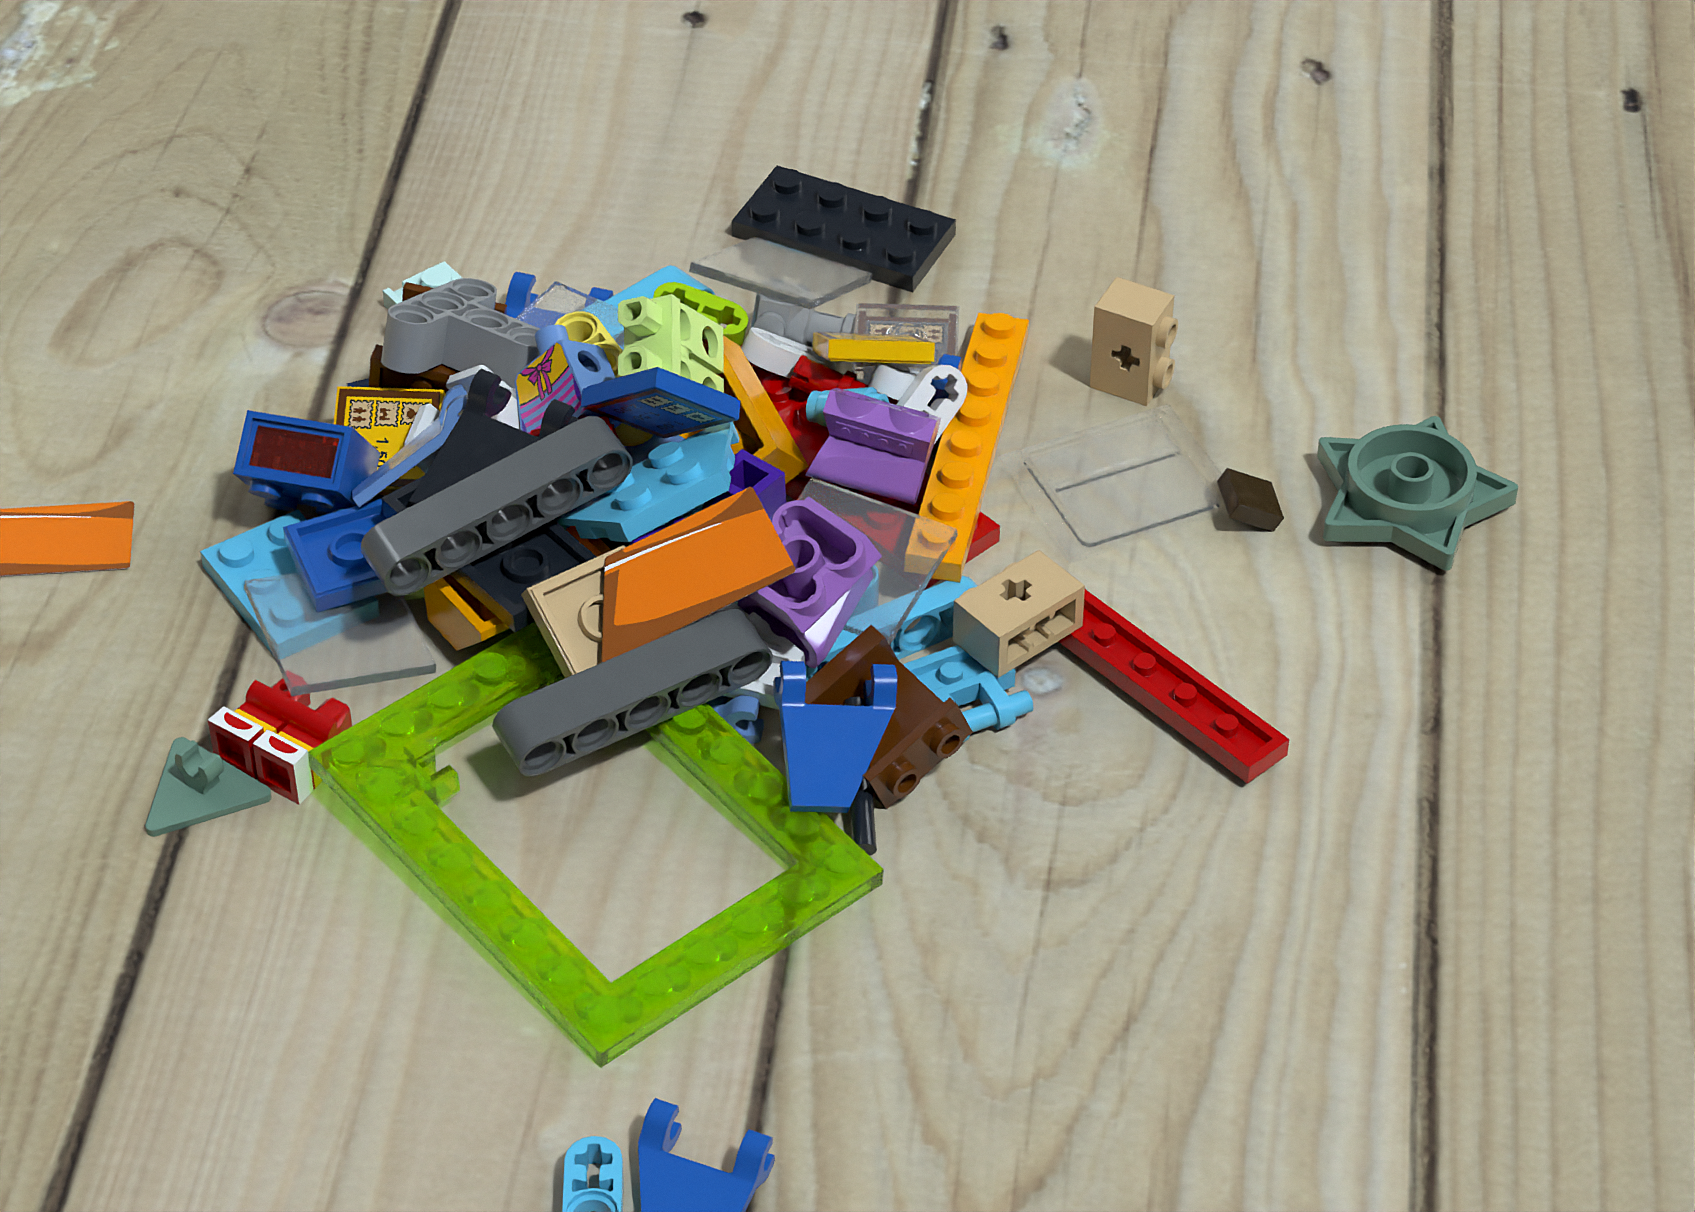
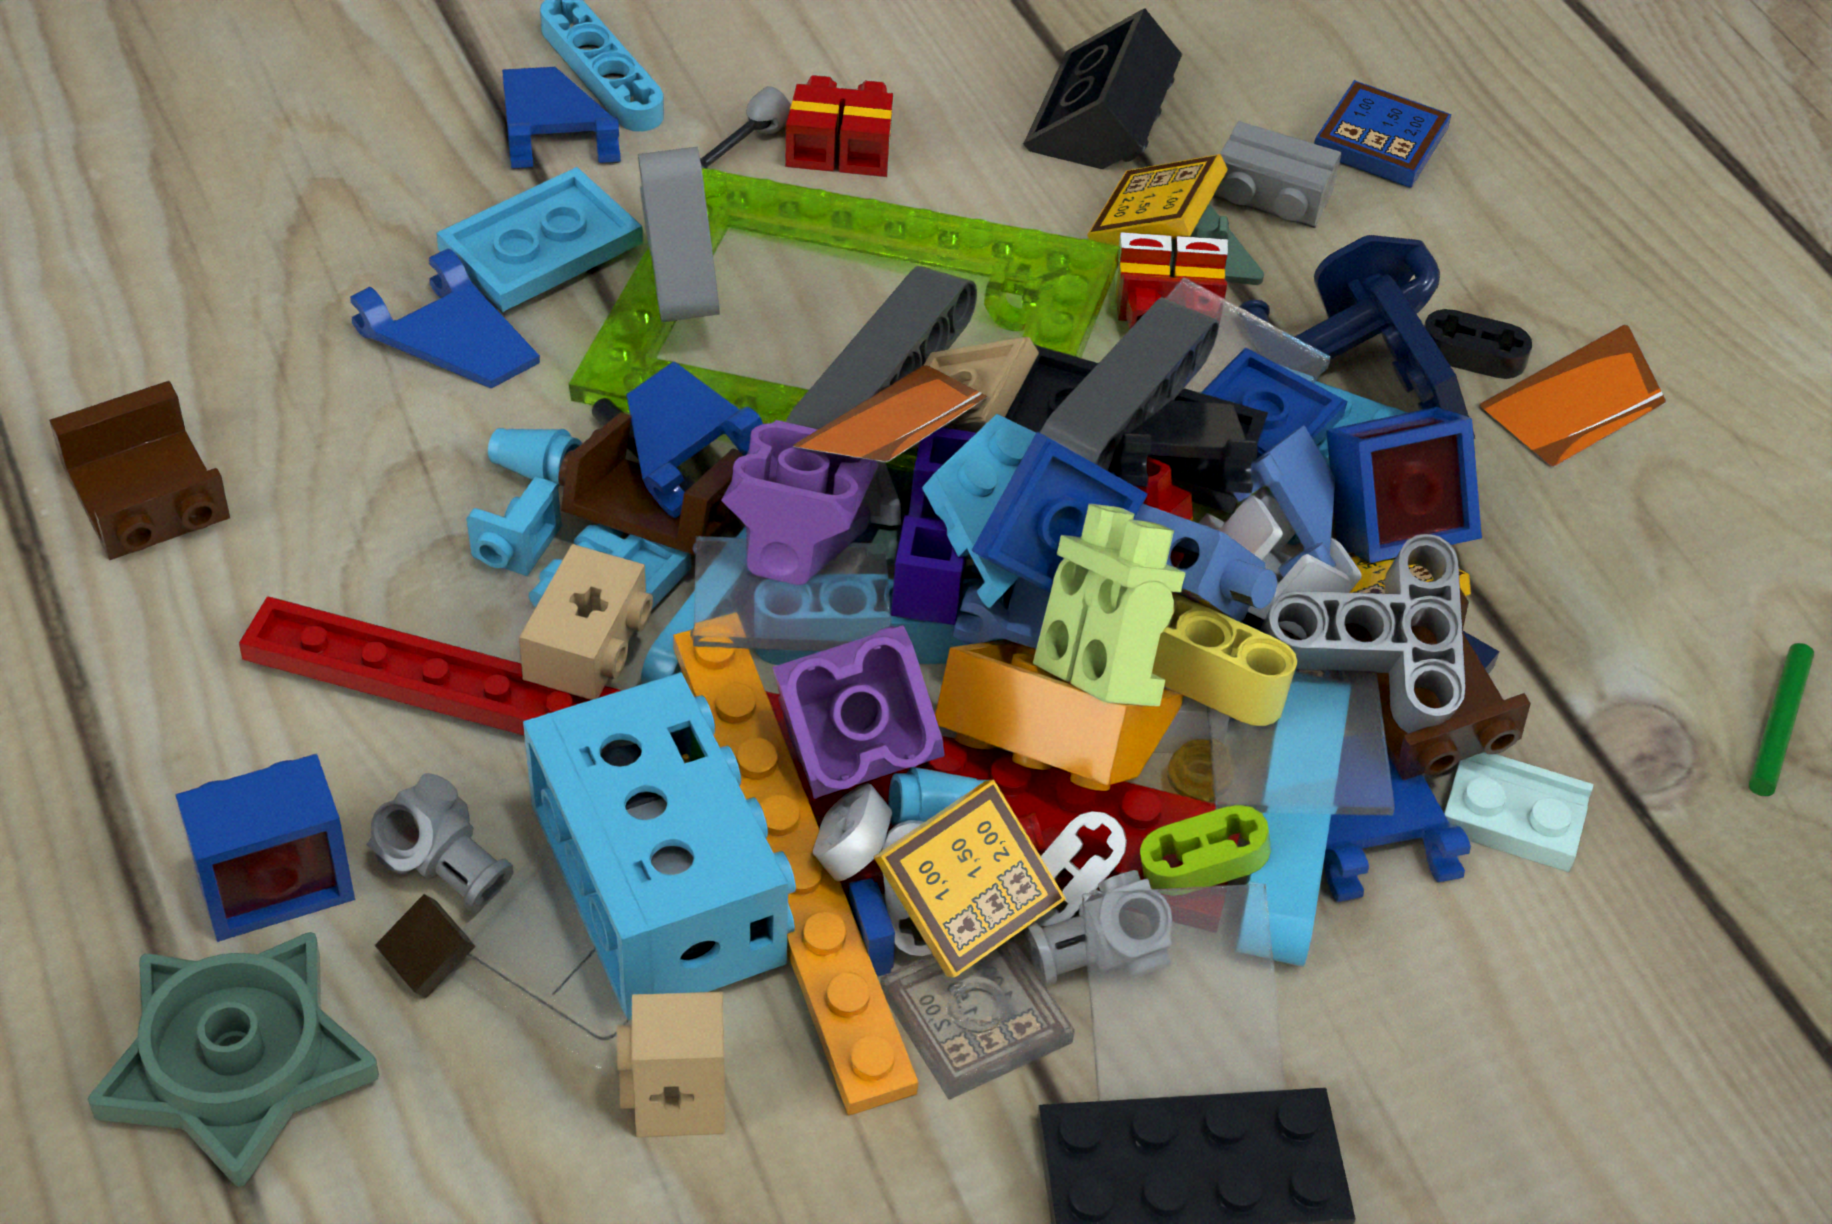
camera: 145 degrees right, 5 degrees up
(68, 607) = (1477, 343): none -> black beam
(68, 802) = (1278, 174): none -> light grey brick
(132, 958) = (1106, 95): none -> black slope
(146, 623) = (1371, 293): none -> dark blue plate
(199, 285) = (1781, 720): none -> green bar
(214, 805) = (1160, 199): none -> yellow tile
(421, 1029) = (824, 111): none -> red hips
(479, 1088) = (766, 115): none -> light grey hinge
(721, 858) = (678, 233): none -> light grey beam
(809, 1033) = (541, 238): none -> medium azure plate
(949, 971) = (453, 332): none -> blue flag
(953, 813) = (531, 451): none -> medium azure cone
(1006, 745) = (523, 532): none -> medium azure bracket
(1064, 444) = (659, 841): none -> medium azure piece
(1210, 542) = (440, 844): none -> light grey connector
(1307, 932) = (138, 470): none -> reddish brown panel
(1338, 559) = (266, 846): none -> blue piece

